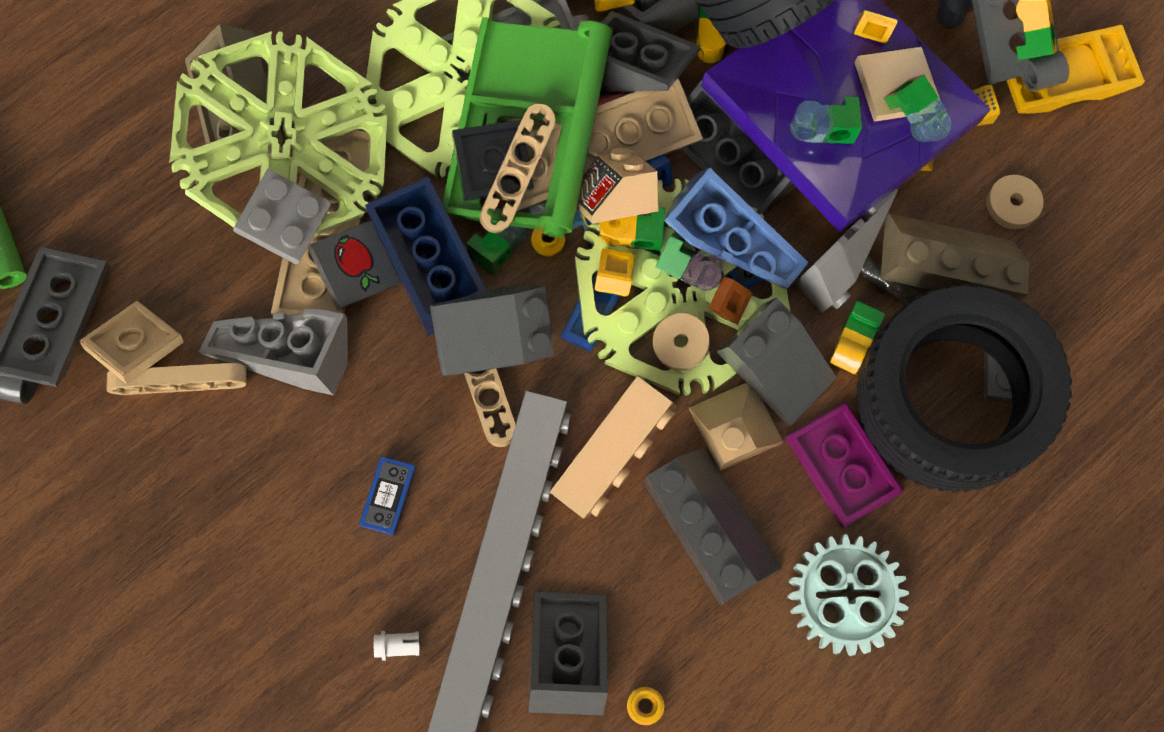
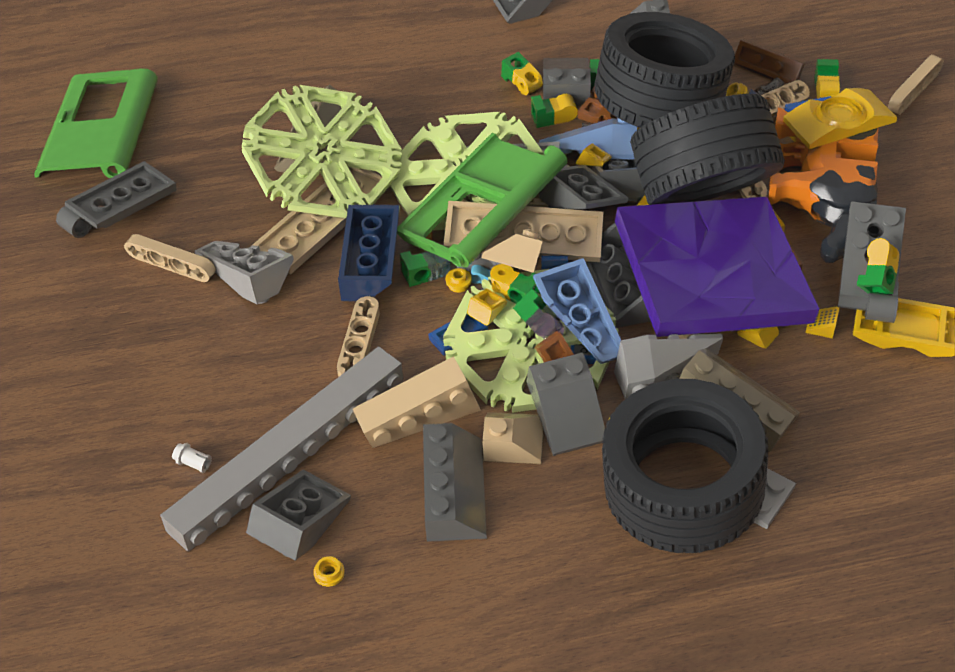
camera: 35 degrees right, 25 degrees down
(131, 342) = (157, 225): tan tile -> none
(282, 216) = (291, 186): light grey plate -> none
(354, 265) = (319, 238): dark grey tile -> none
(387, 496) = (249, 375): tile -> none
(480, 156) = (444, 207): black tile -> none
(493, 329) = (379, 299): dark grey slope -> none
(517, 168) = (452, 210): tan beam -> none
(678, 326) = (506, 373): tan piece -> none
(827, 122) = (682, 260): leg -> none
(844, 465) = (576, 494): magenta tile -> none
(850, 627) = (521, 569): light aqua gear -> none
(874, 26) = (759, 226): yellow slope -> none
(887, 71) = (754, 265): tan tile -> none
(922, 108) = (756, 276): leg -> none
(1024, 191) = (820, 399): tan piece -> none

